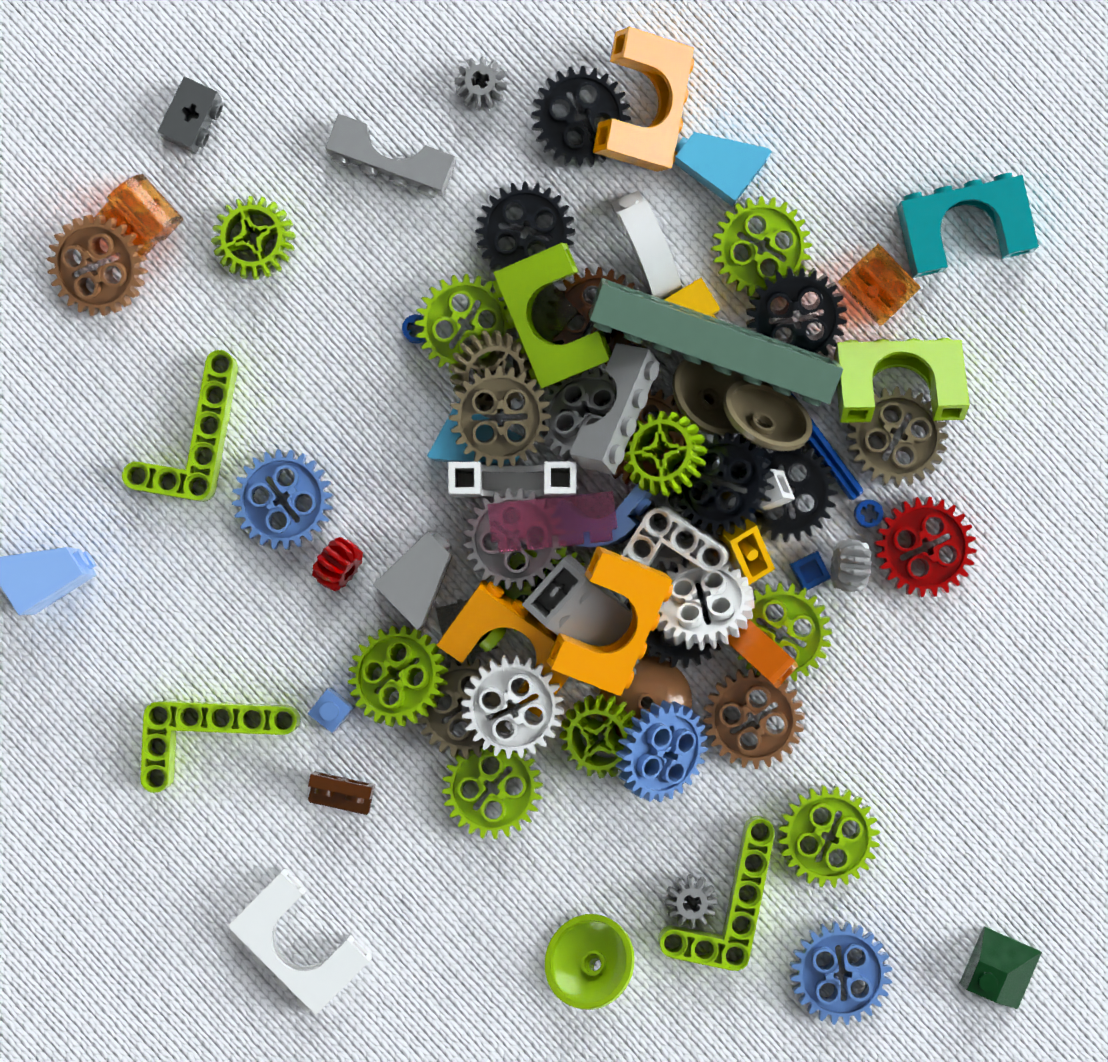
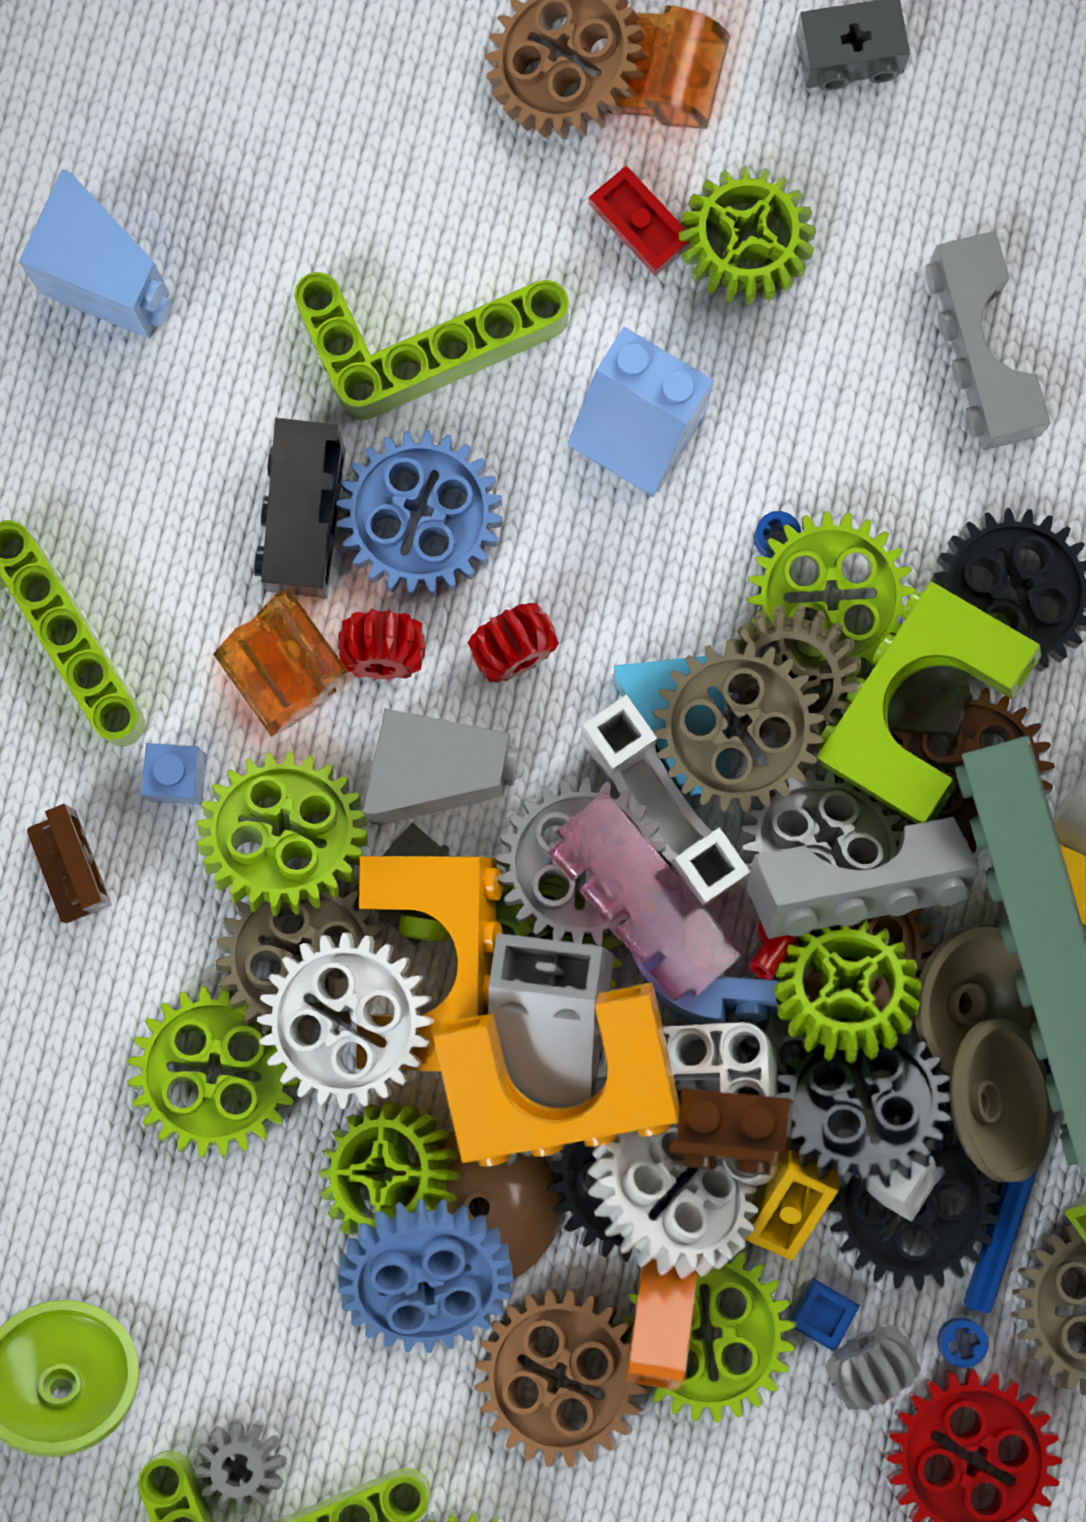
camera: 55 degrees right, 5 degrees down
(207, 286) = (639, 220): none -> red plate
(240, 557) = (301, 507): none -> black wedge
(308, 355) = (640, 411): none -> light blue slope
(312, 620) = (281, 663): none -> clear orange brick
(381, 497) = (513, 642): none -> red gear
(622, 478) = (770, 954): none -> red arm
(693, 554) = (734, 1129): none -> reddish brown bracket

